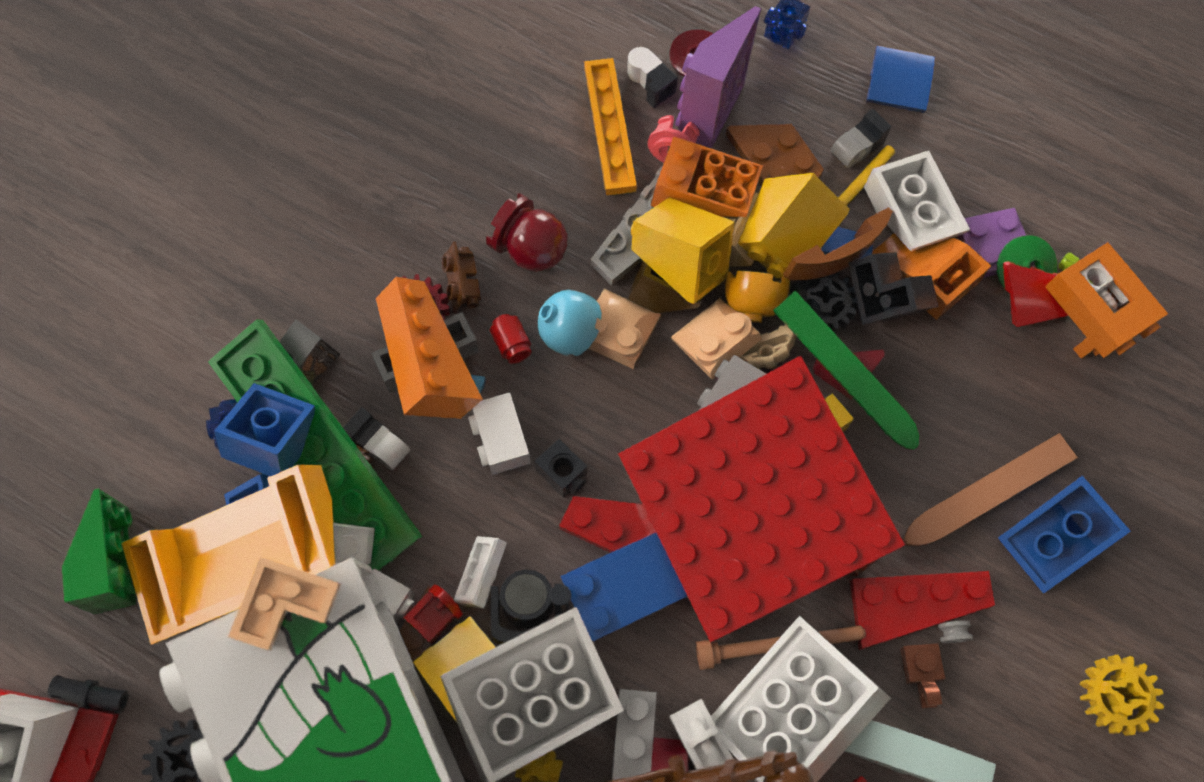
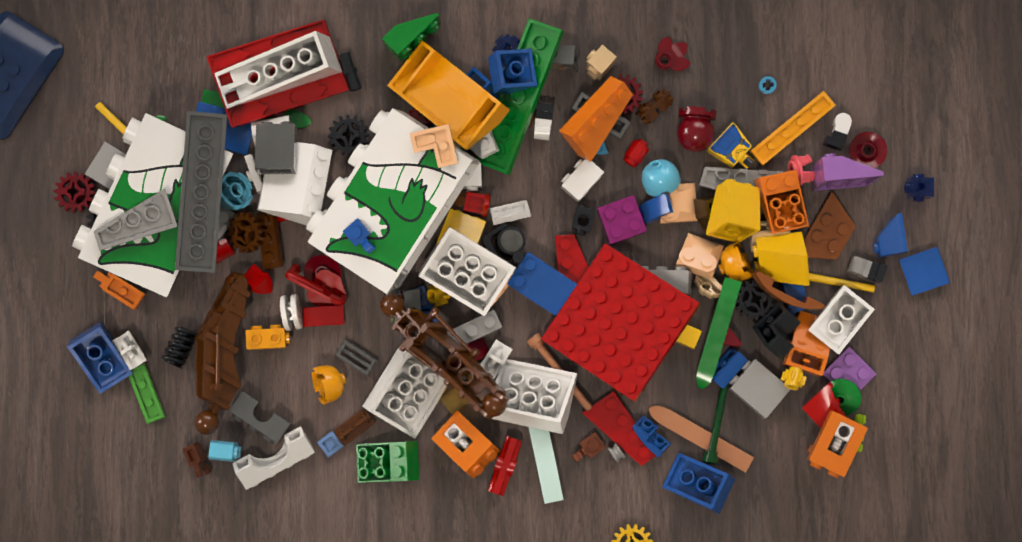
camera: 60 degrees right, 15 degrees up
(346, 307) = (600, 62): none -> tan brick
(407, 214) = (673, 53): none -> dark red plate
(527, 117) = (771, 89): none -> dark azure bush
(587, 211) = (731, 148): none -> torso
(596, 413) = (621, 220): none -> magenta brick
(610, 355) = (655, 208): none -> blue slope
(835, 82) = (891, 239): none -> blue slope
(902, 383) = (728, 367): none -> blue slope
(959, 367) = (758, 388): none -> light grey brick
(967, 562) = (652, 440): none -> blue slope
(974, 306) = (793, 378): none -> yellow gear
(1029, 489) = (711, 454): none -> dark green piece

